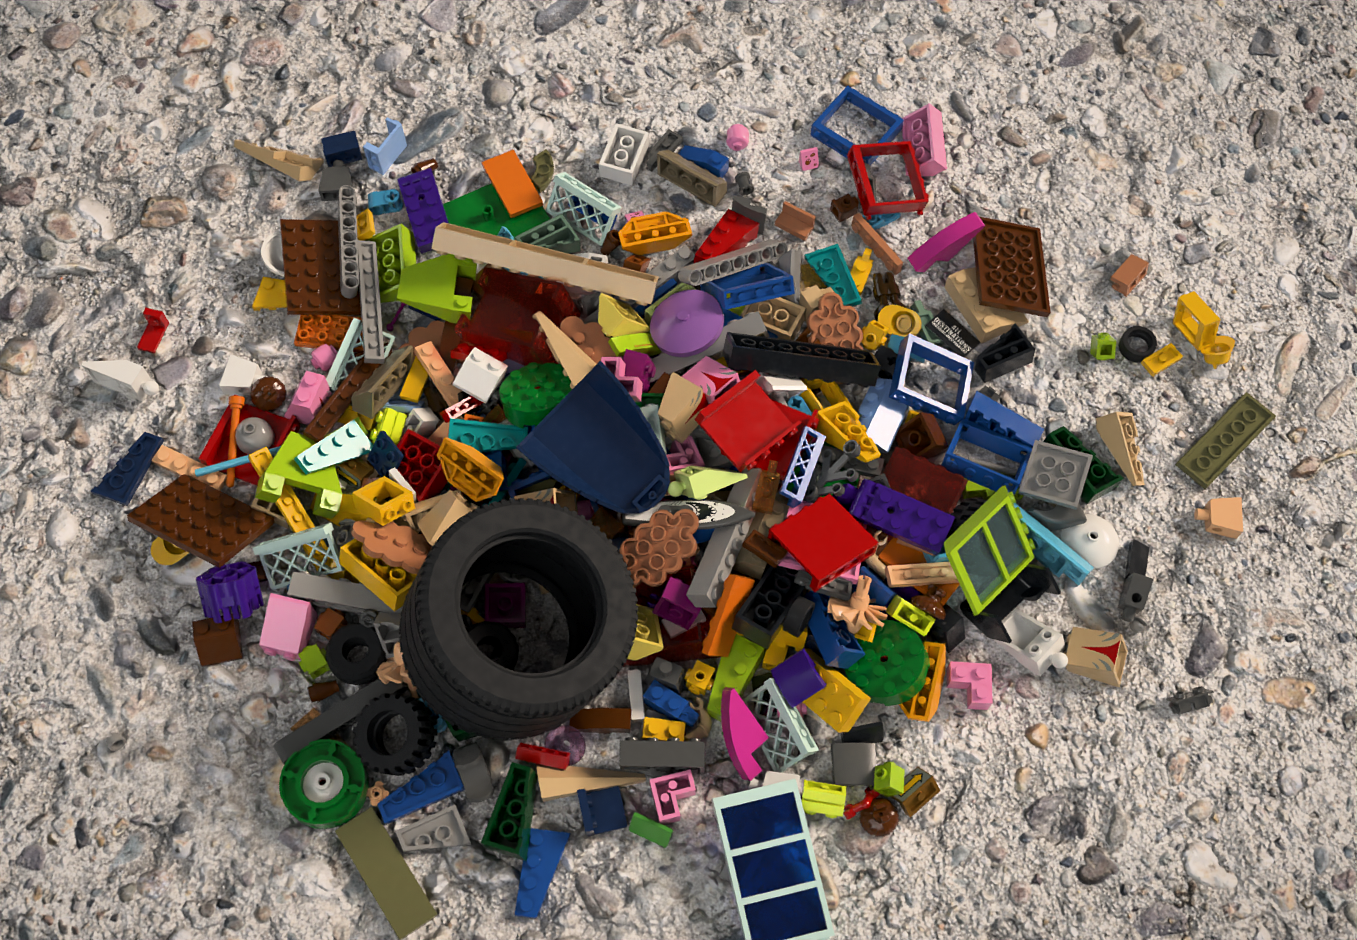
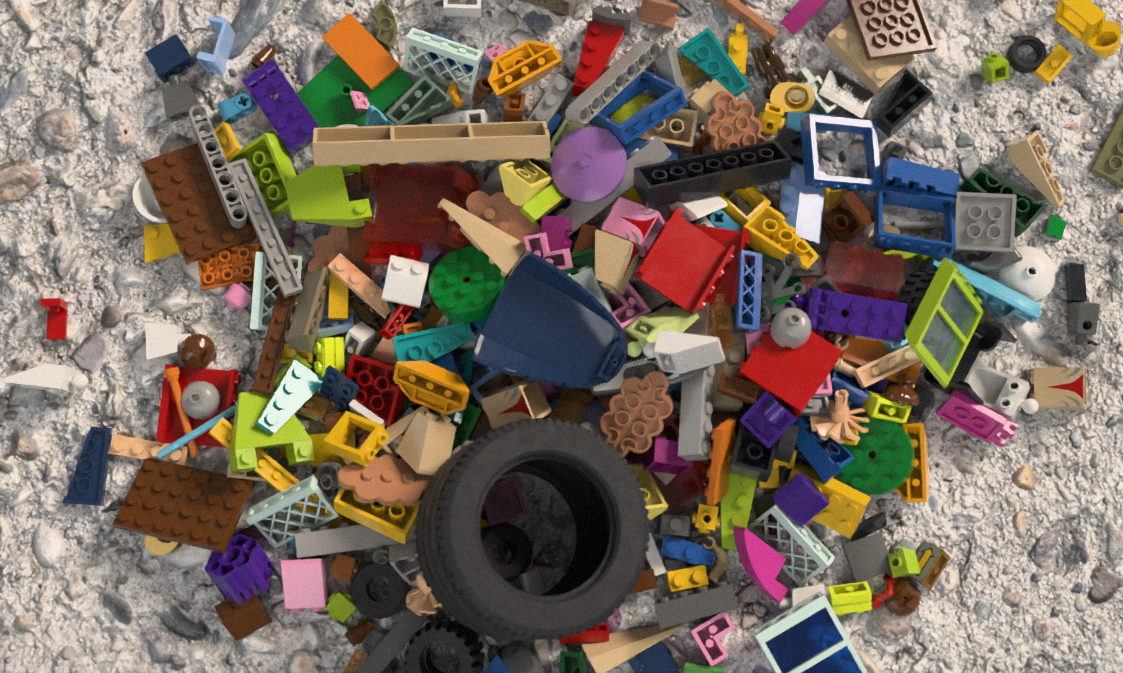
camera: 15 degrees left, 15 degrees up
(292, 164) = (131, 92): tan wedge -> none
(308, 398) = (240, 348): bright pink slope -> none
(495, 222) = (360, 101): none -> bright pink slope
(584, 241) = (452, 93): none -> light orange tile
(722, 496) = (684, 351): none -> white slope
(785, 583) = (768, 419): none -> dark purple plate
(833, 505) = (790, 328): none -> light grey cylinder
(974, 678) = (958, 445): bright pink brick -> none
(1007, 662) = (976, 419): none -> dark pink tile
(1128, 505) = (1054, 227): none -> green slope

